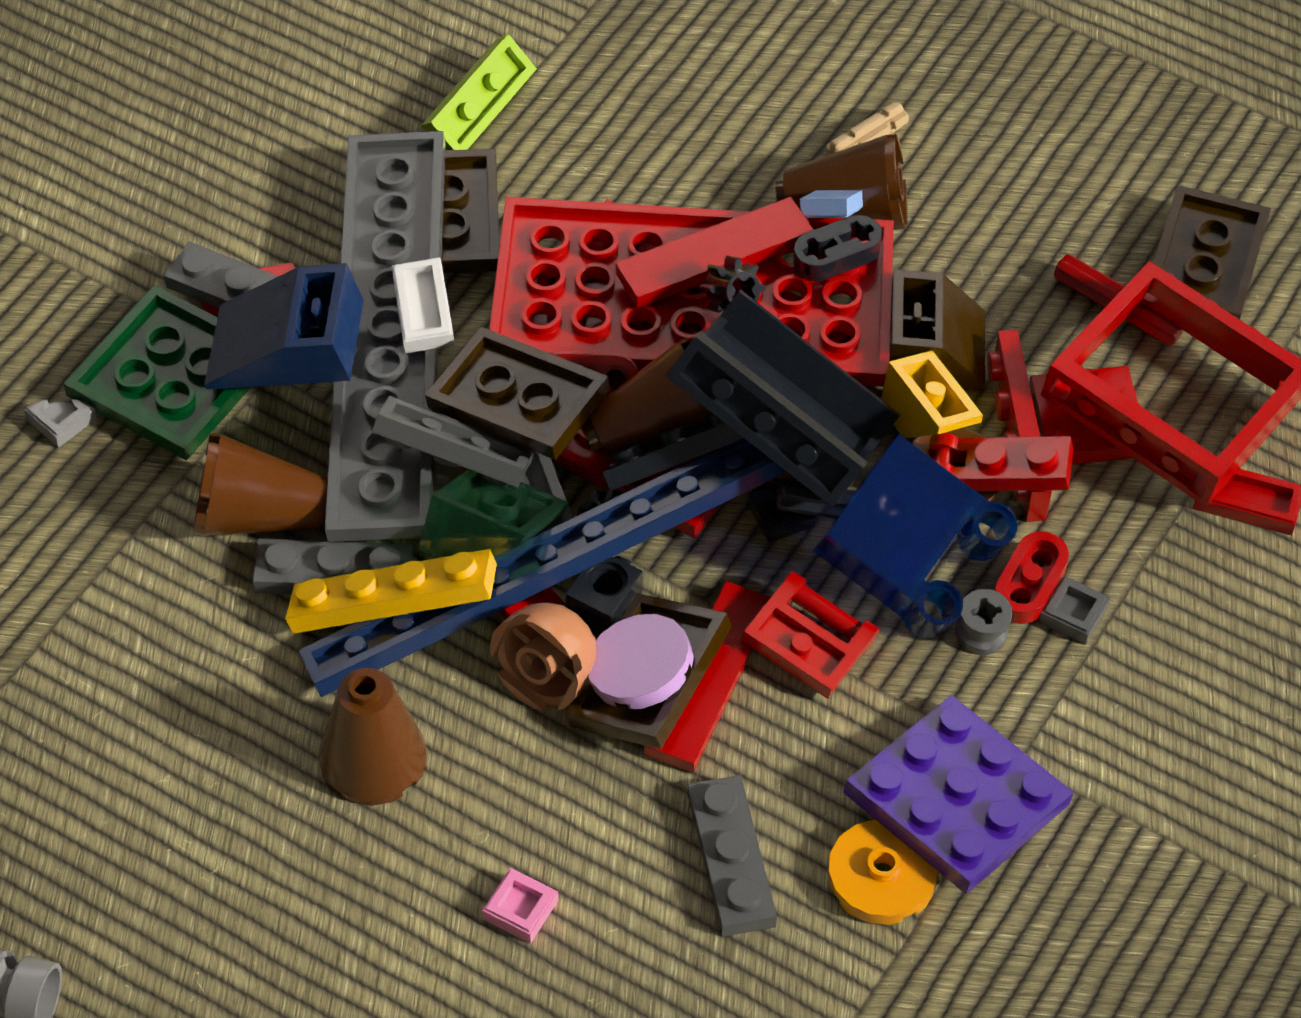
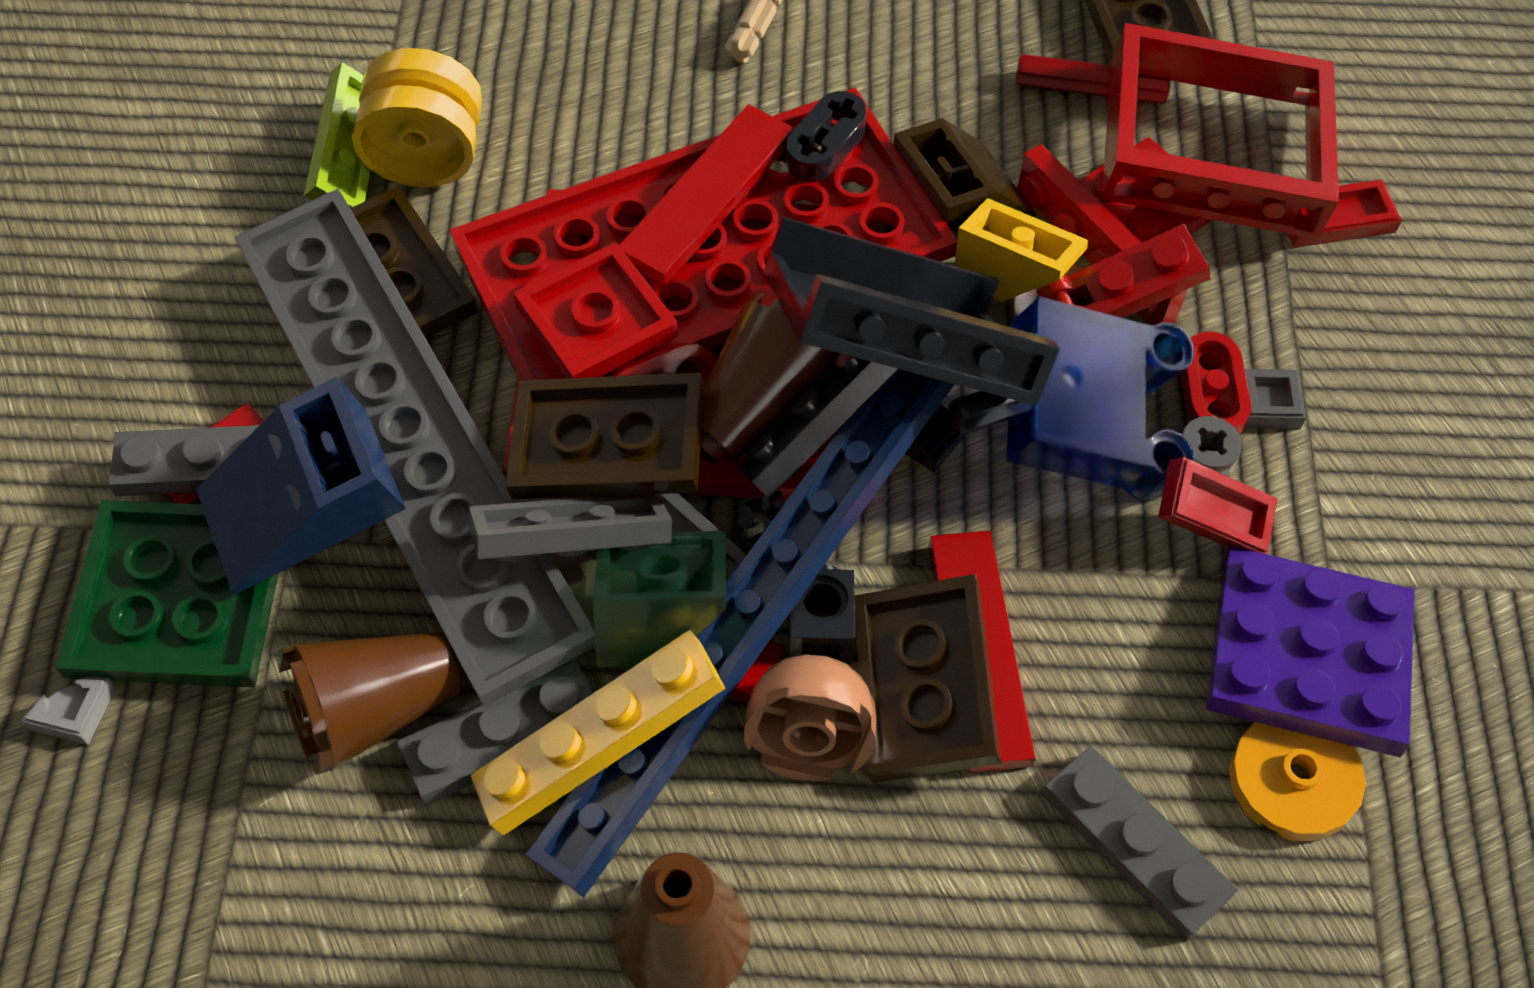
camera: 30 degrees left, 5 degrees up
(423, 305) = (436, 386): white tile -> none
(536, 102) = (417, 118): none -> yellow wheel
(568, 304) = (595, 314): none -> red plate
(641, 661) = (923, 674): lavender tile -> none
(725, 282) = (755, 218): black gear -> none
(803, 645) = (1055, 567): red plate -> none
(831, 203) = (790, 94): light blue tile -> none
(864, 167) = (784, 69): reddish brown cone -> none
(955, 659) = (1217, 506): none -> red tile

